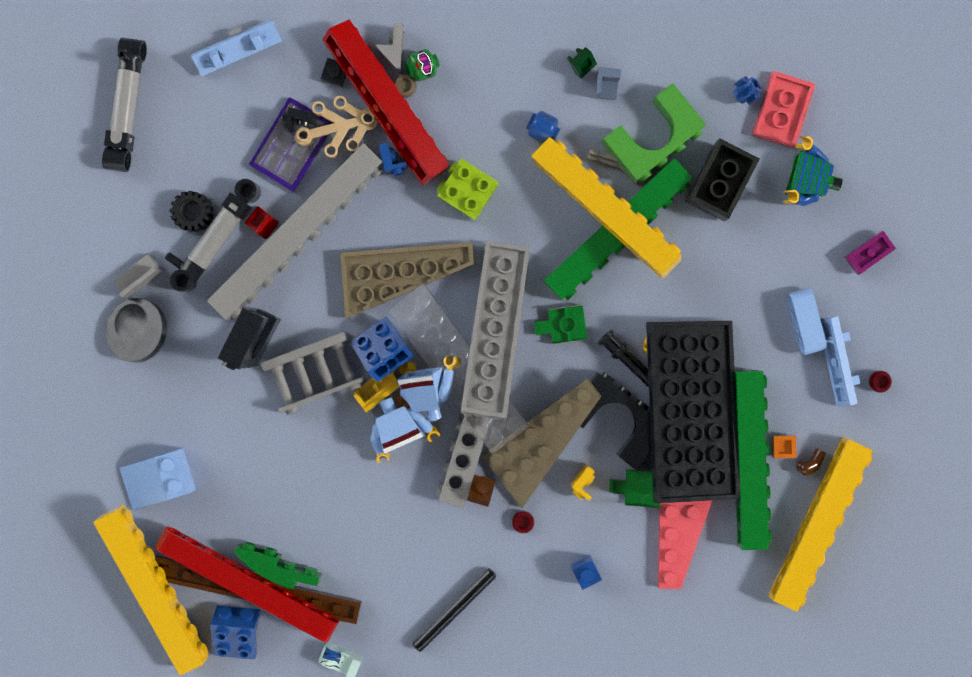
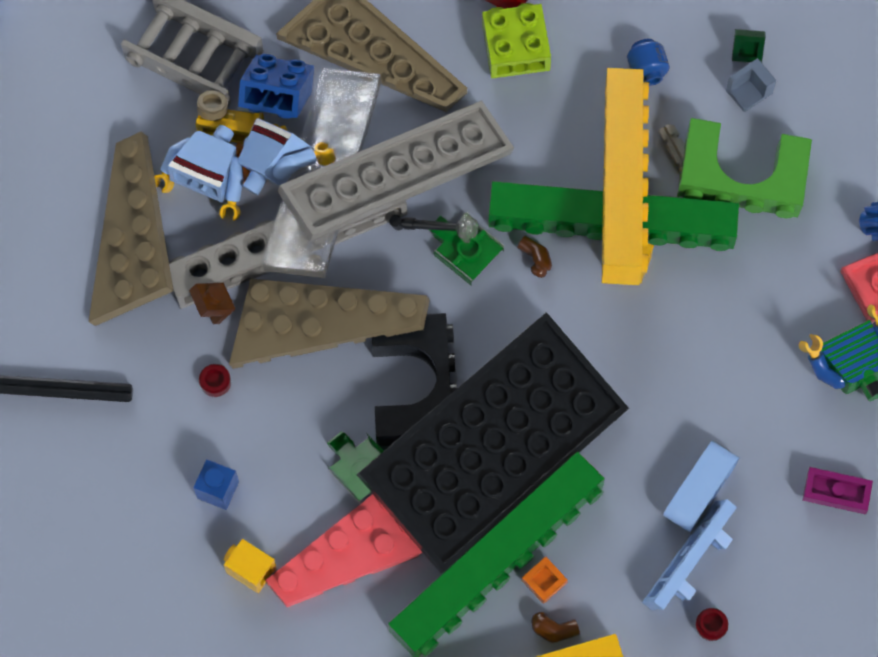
camera: 45 degrees right, 20 degrees down
(363, 394) = (212, 105): none -> dark tan tile
(410, 506) = (132, 246): none -> dark tan wing
(558, 318) = (465, 227): none -> piece
(583, 479) = (315, 397): yellow bracket -> none
(604, 289) = (539, 254): none -> reddish brown arm
(620, 351) = (489, 323): black pin -> none
(644, 591) = (249, 565): none -> yellow brick
(722, 179) = (763, 270): pearl dark grey brick -> none

